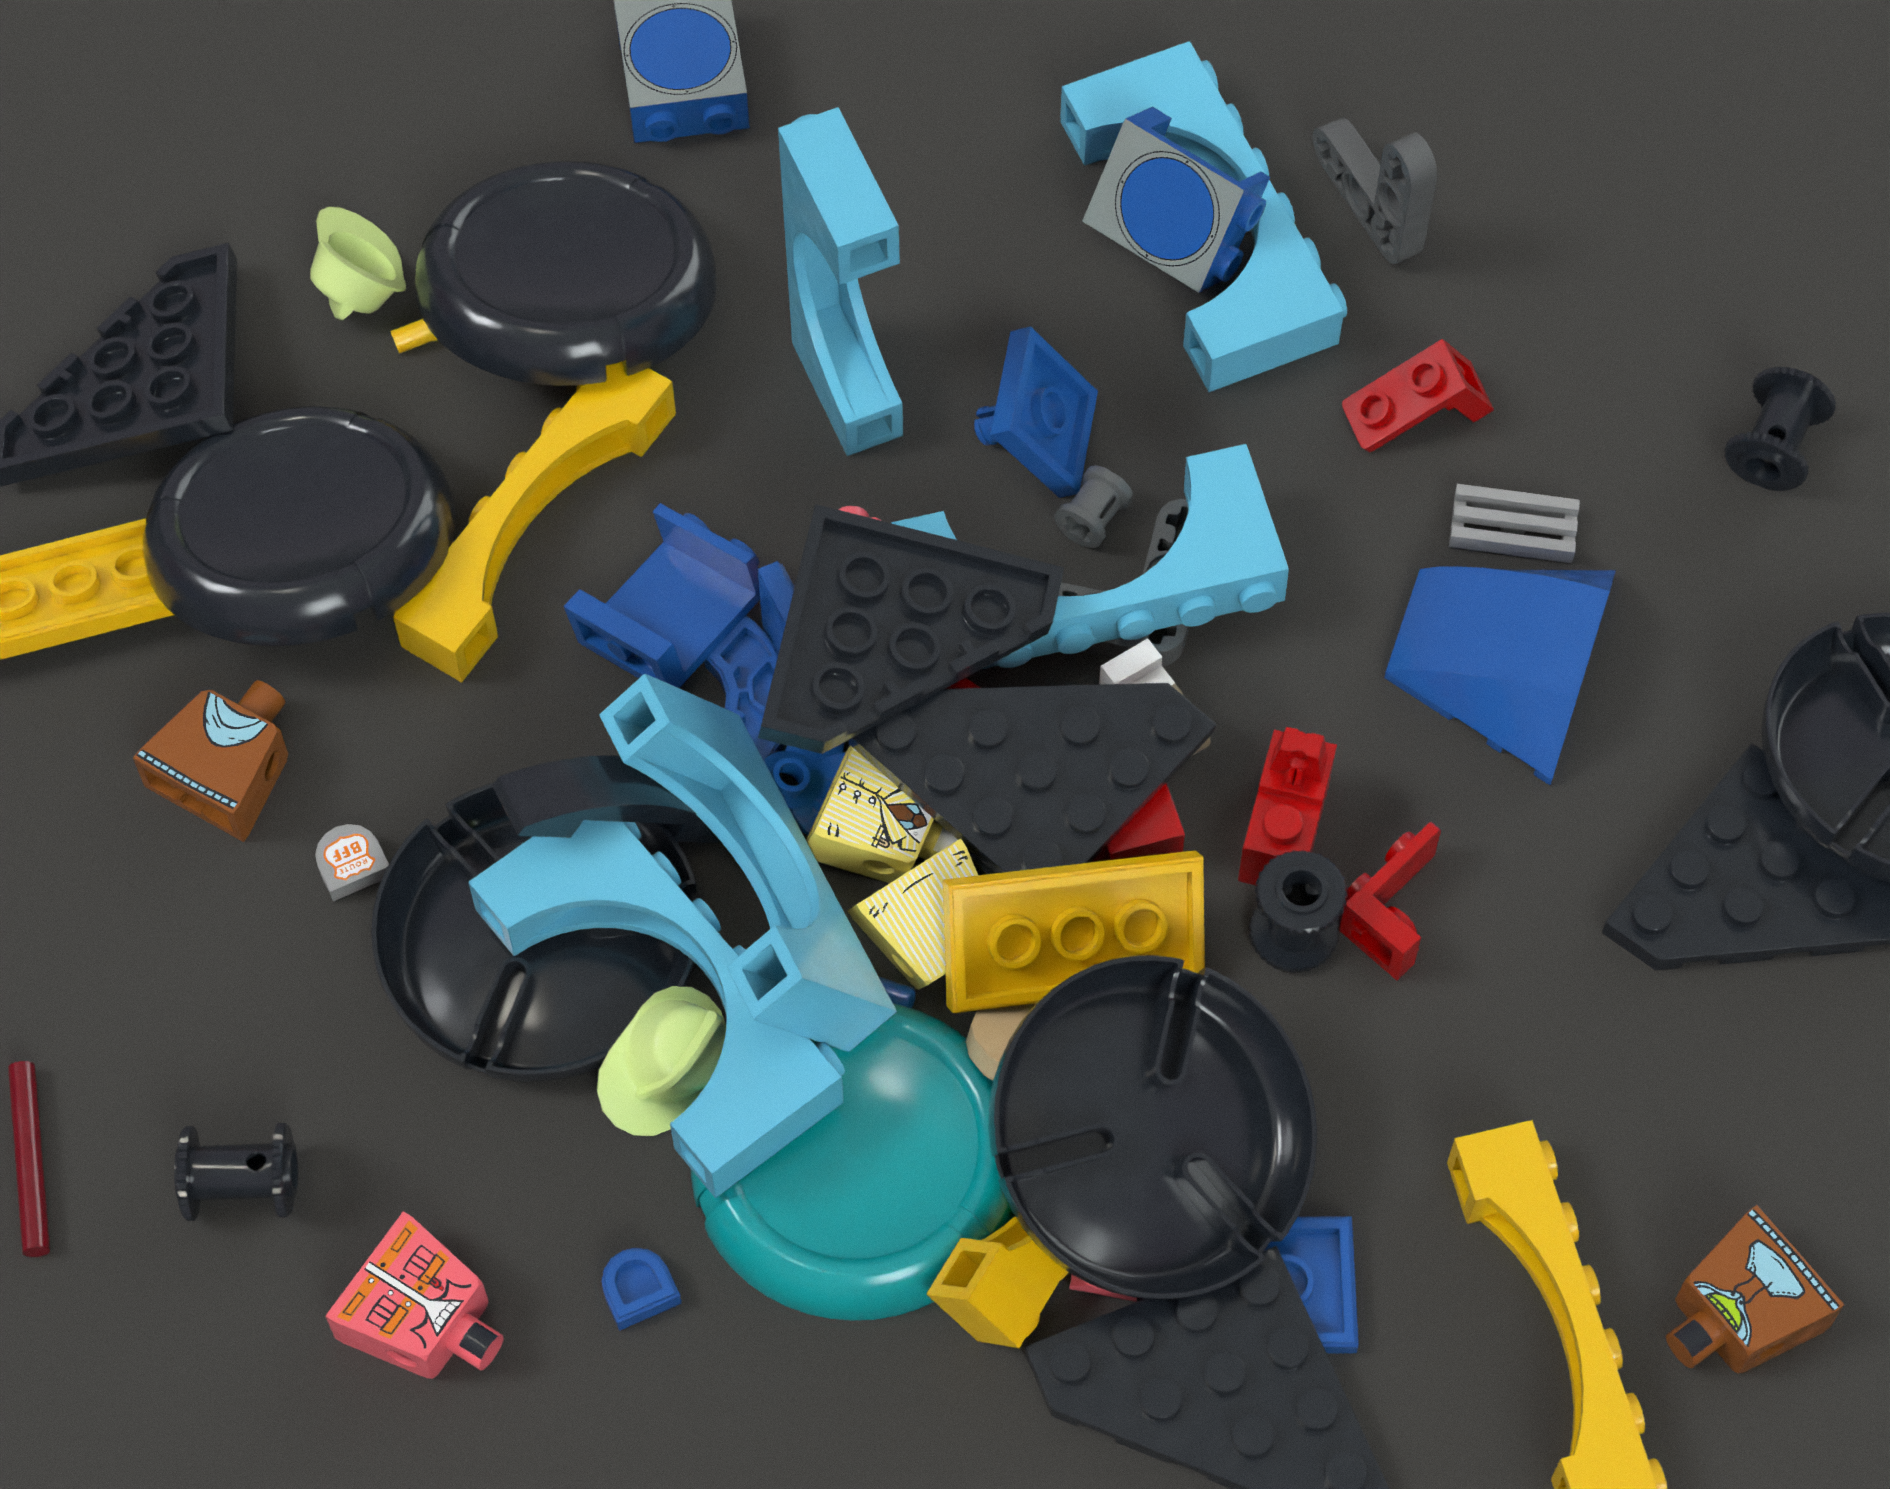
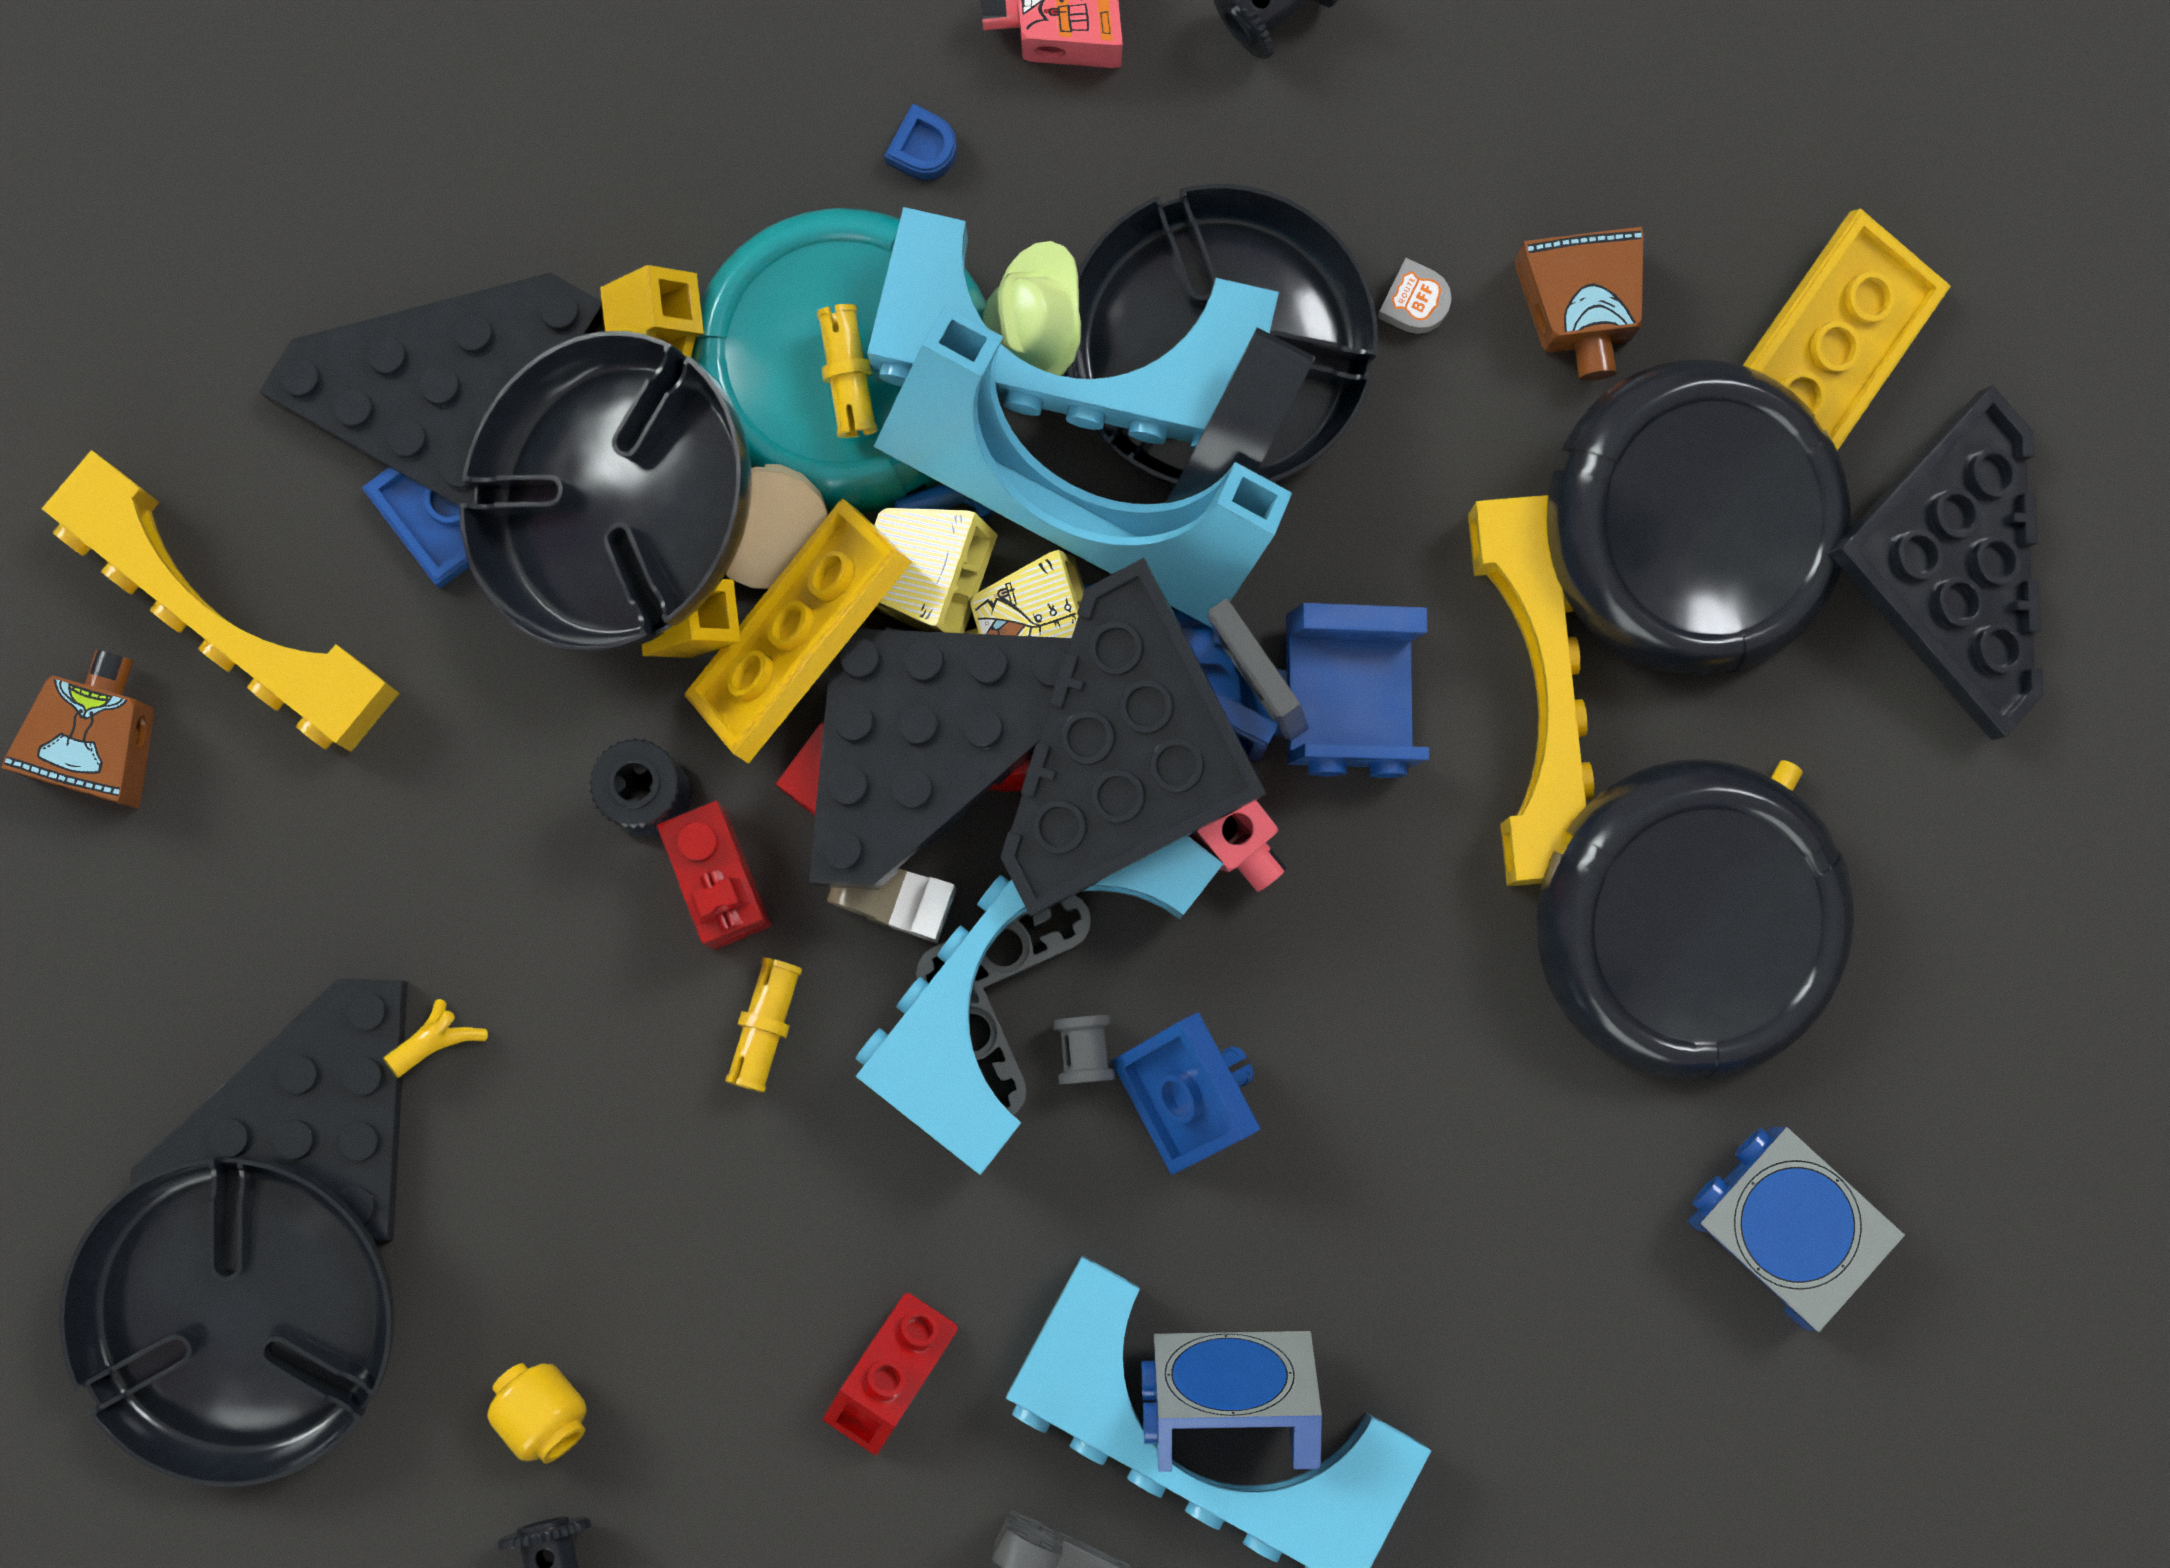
camera: 140 degrees right, 20 degrees up
(354, 263) = (1887, 807): yellowish green piece -> none
(737, 629) = (1257, 670): none -> dark grey piece
(833, 236) = (1418, 1012): medium azure arch -> none
(866, 1107) = (847, 371): none -> yellow pin
(1333, 689) = (763, 1025): none -> yellow pin
(1385, 932) = (565, 837): red bracket -> none
(1502, 652) = (649, 1182): blue wedge -> none
(1514, 514) = (677, 1340): light grey tile -> none
(1613, 861) = (431, 1038): none -> yellow bar
(1714, 543) = (537, 1412): none -> yellow head

